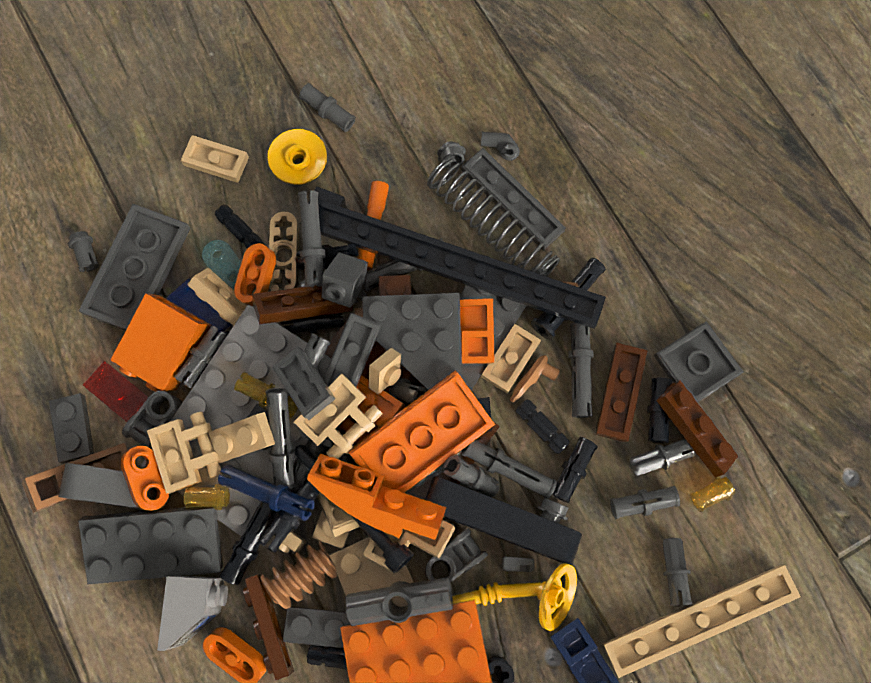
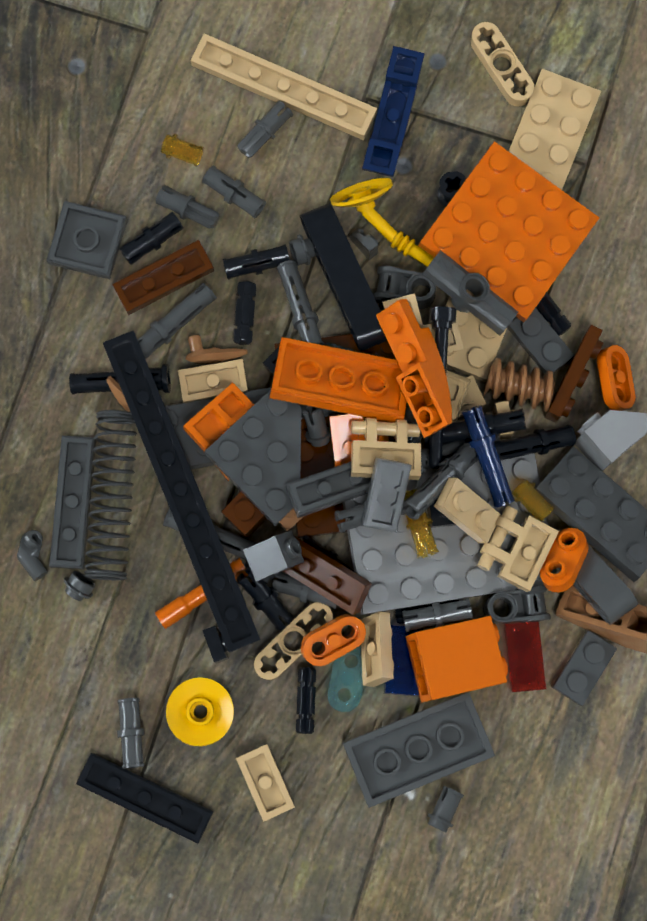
camera: 130 degrees left, 5 degrees up
(280, 85) = (145, 798): none -> black tile
(311, 238) = (268, 609): dark grey pin -> none
(385, 371) = (317, 450): tan plate -> none
(471, 476) = (334, 324): dark grey pin -> none
(697, 428) = (142, 198): reddish brown plate -> none

